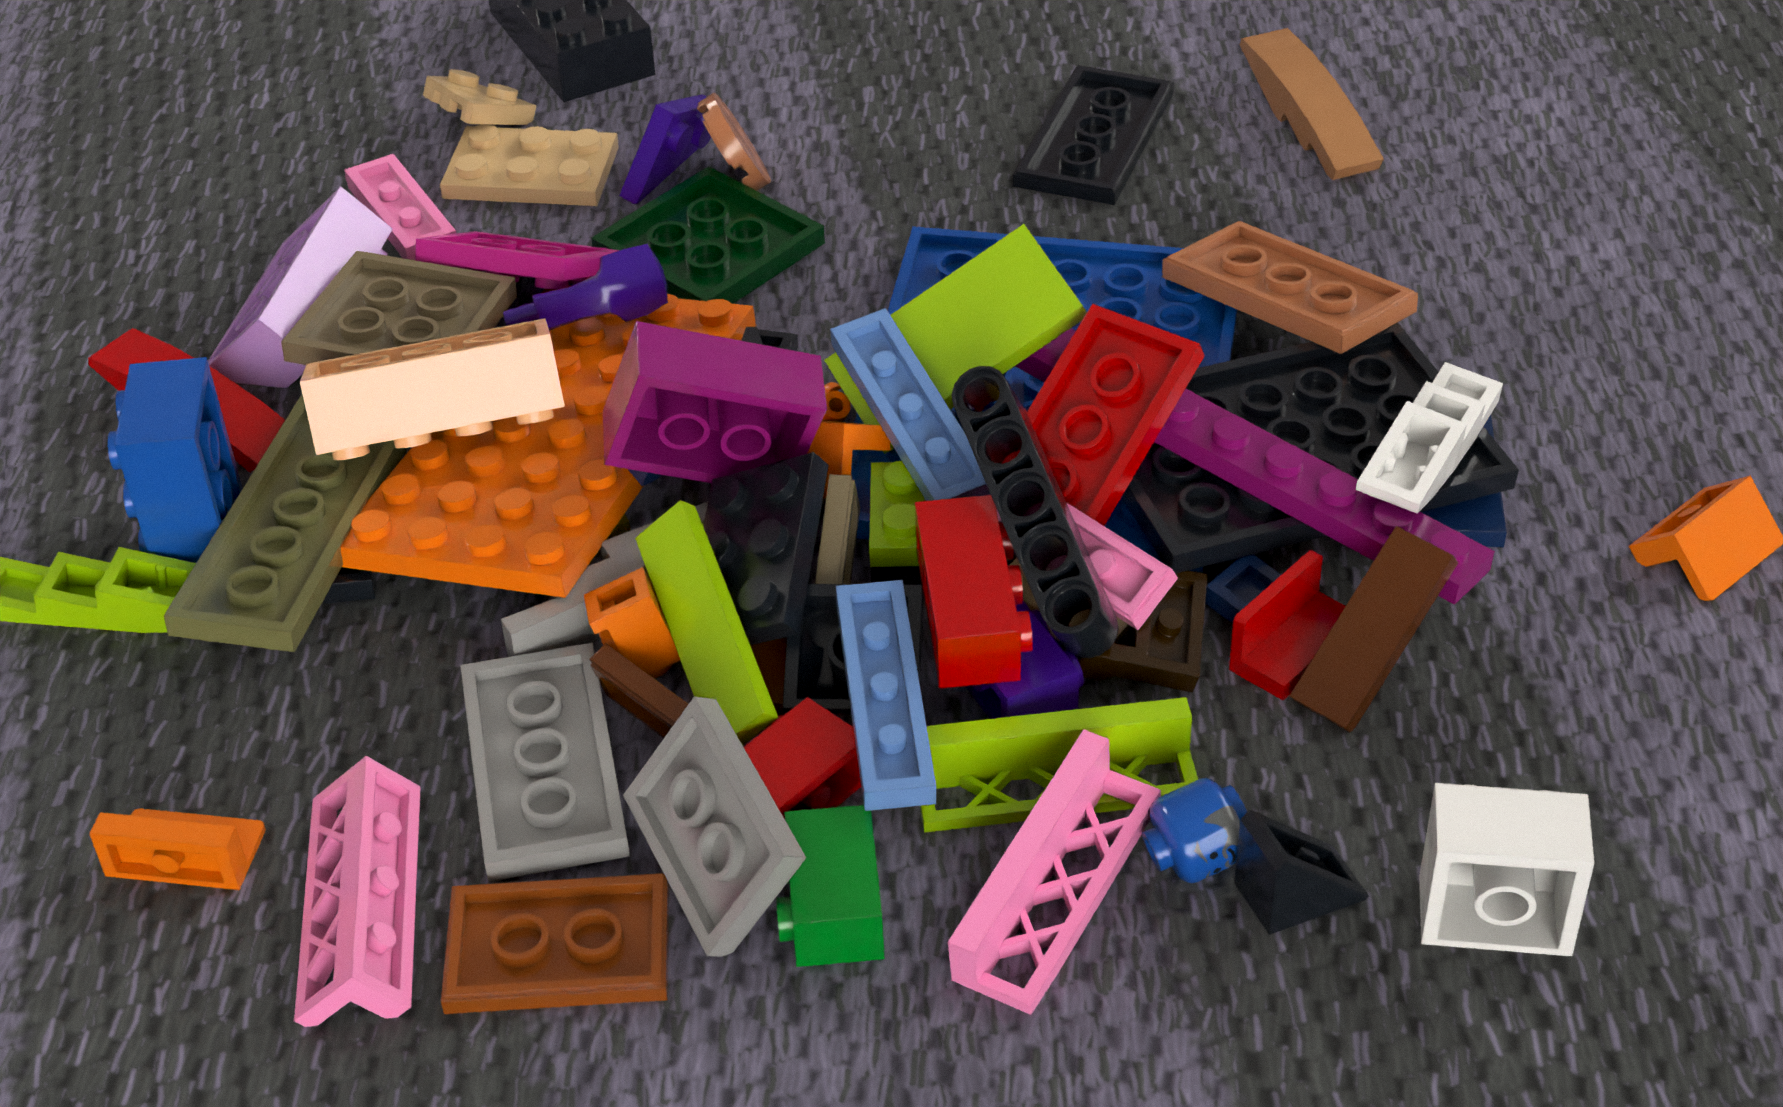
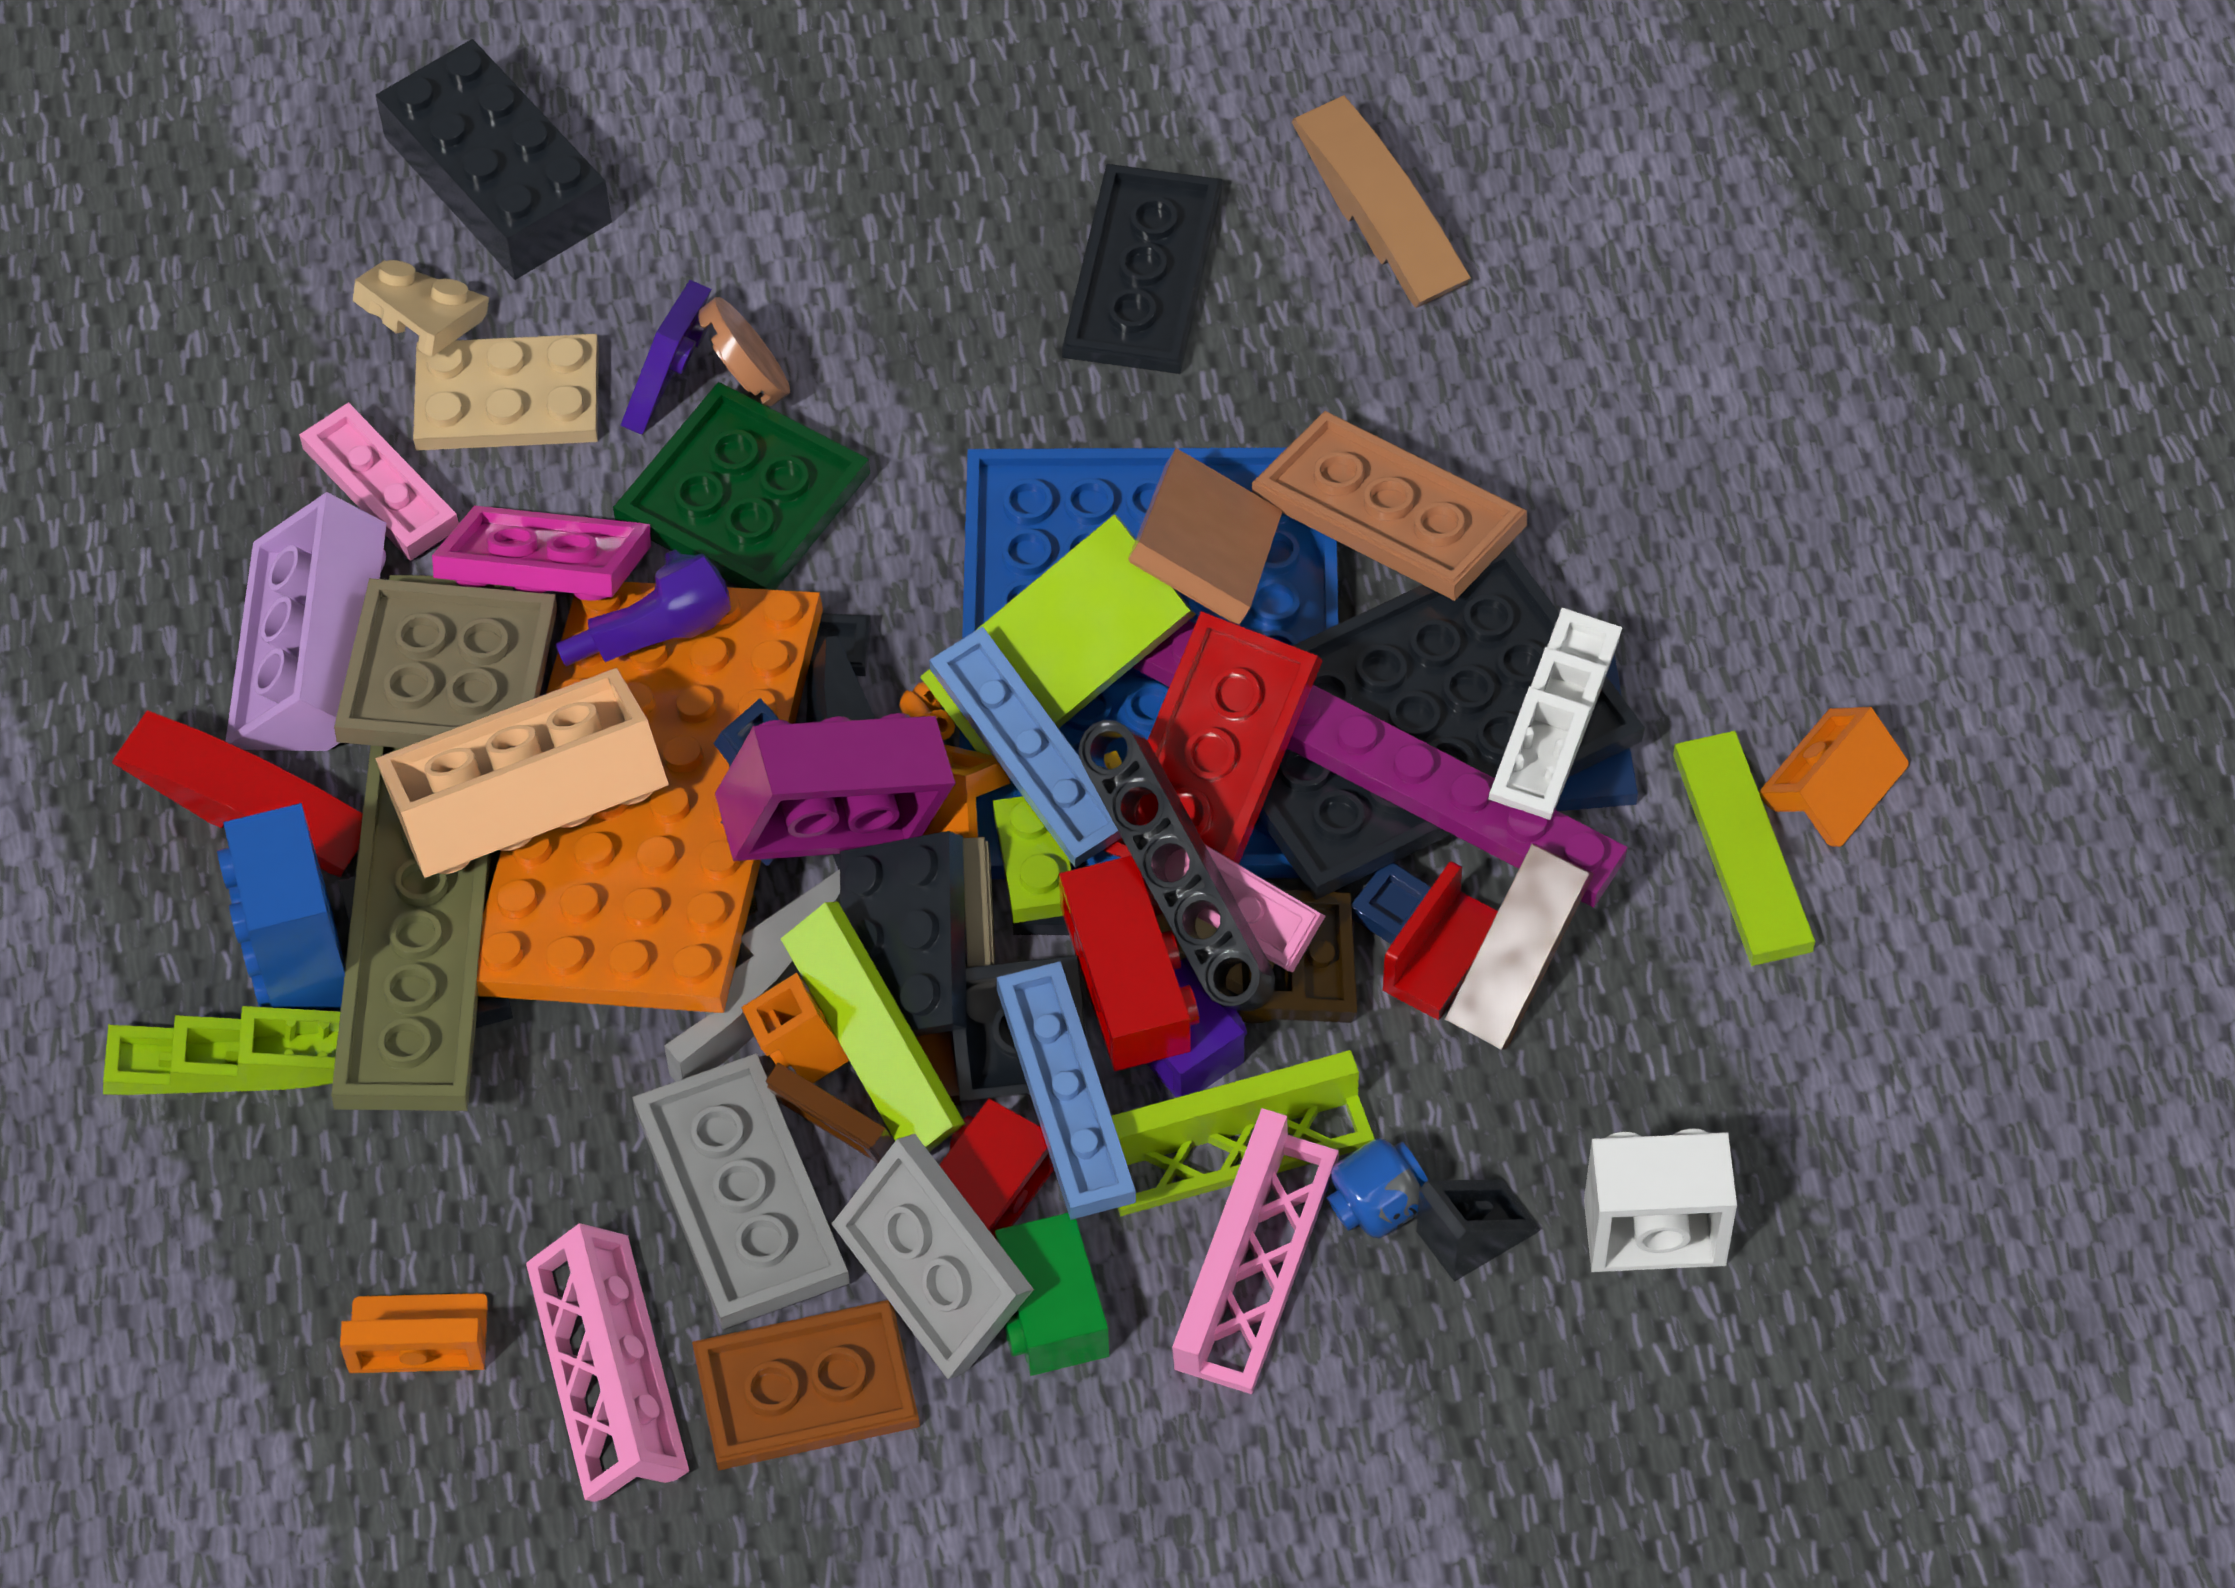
camera: 10 degrees left, 15 degrees up
(1107, 266) = (1206, 536): none -> nougat tile
(1613, 592) = (1743, 848): none -> lime tile

